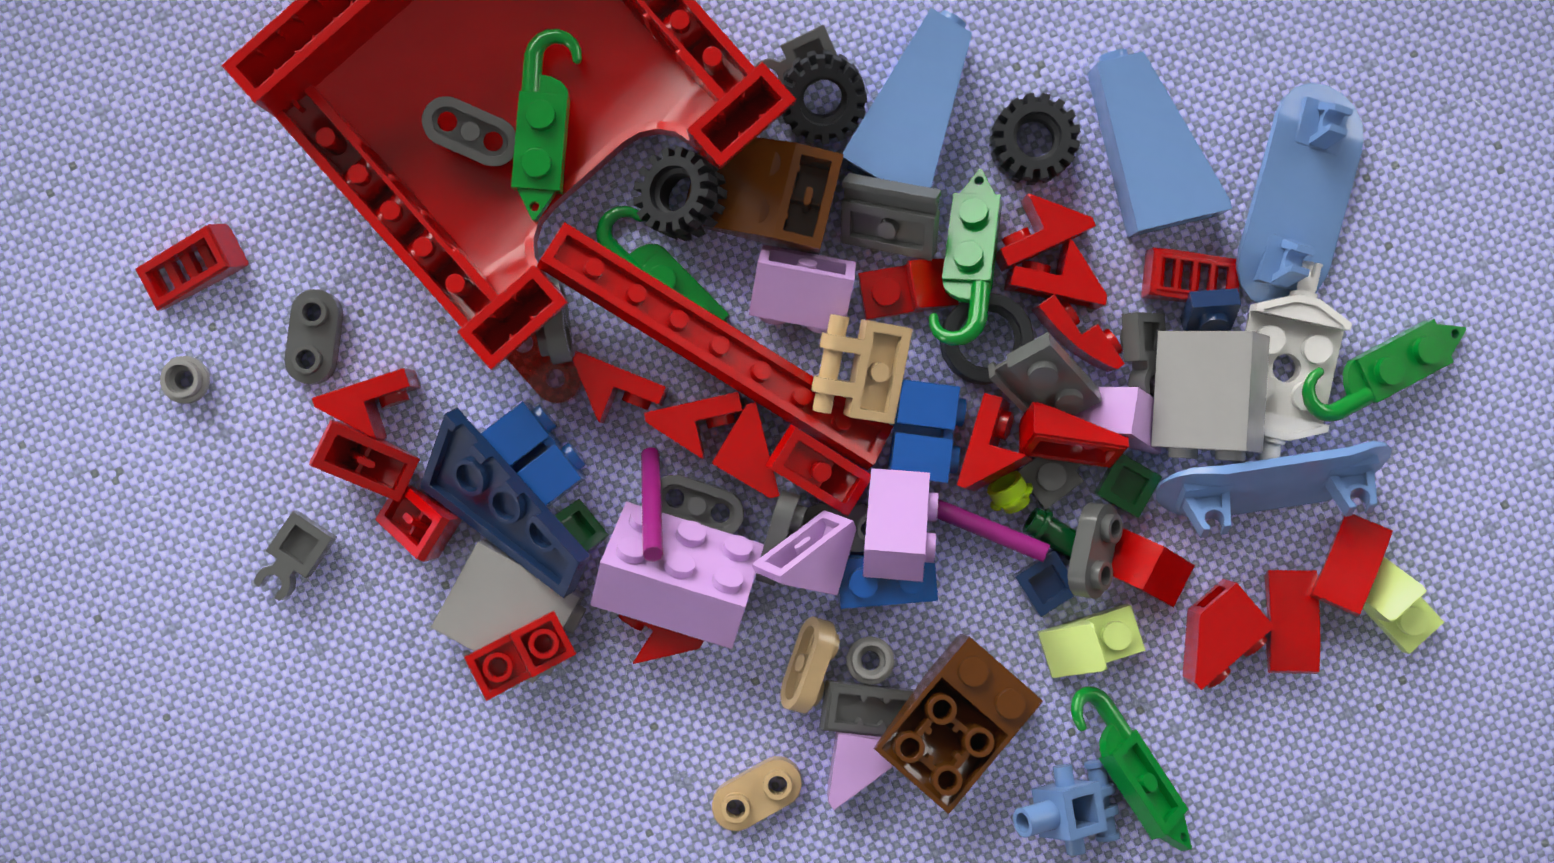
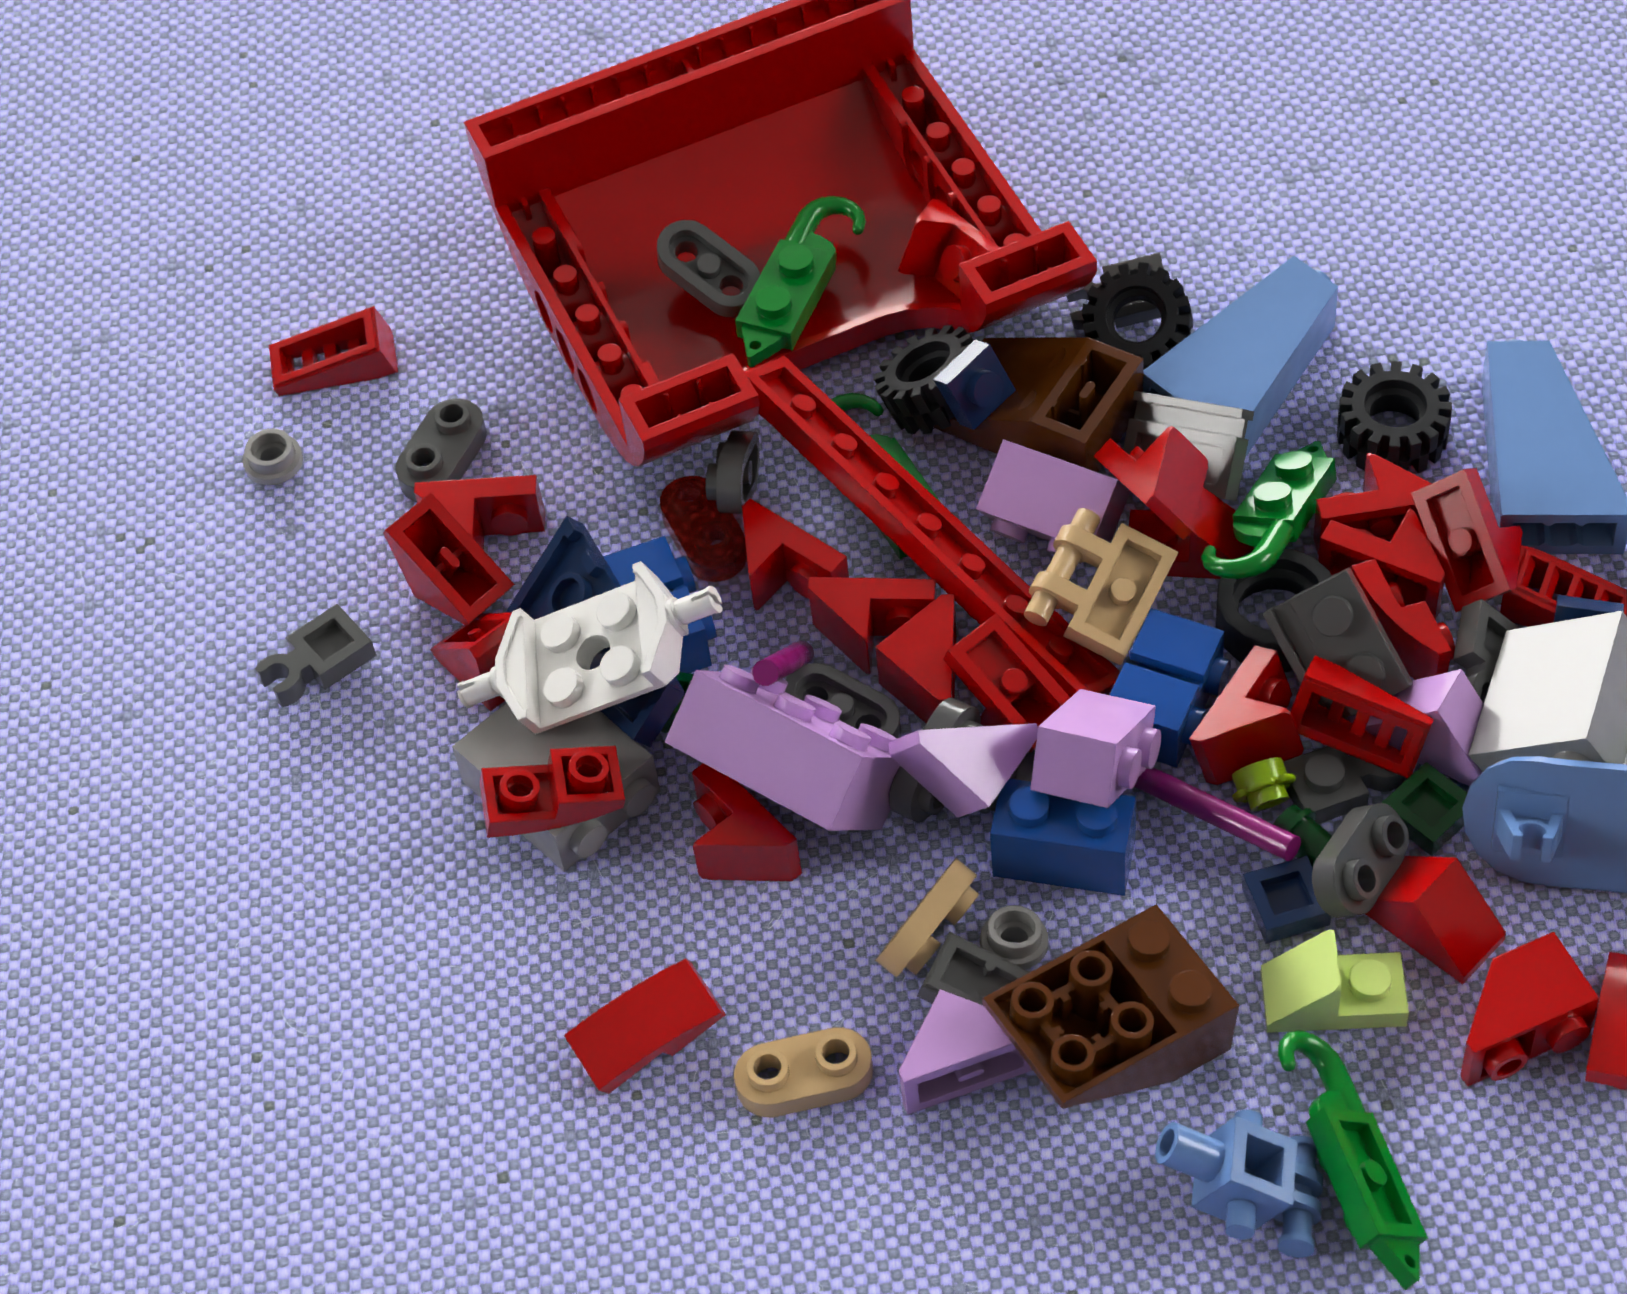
camera: 25 degrees right, 35 degrees down
(479, 555) = (547, 660): none -> white plate
(641, 796) = (643, 1023): none -> red slope
(659, 68) = (941, 243): none -> red slope
(719, 210) = (974, 384): none -> dark blue plate
(883, 274) = (1163, 477): none -> red slope
(1120, 261) = (1466, 538): none -> red slope

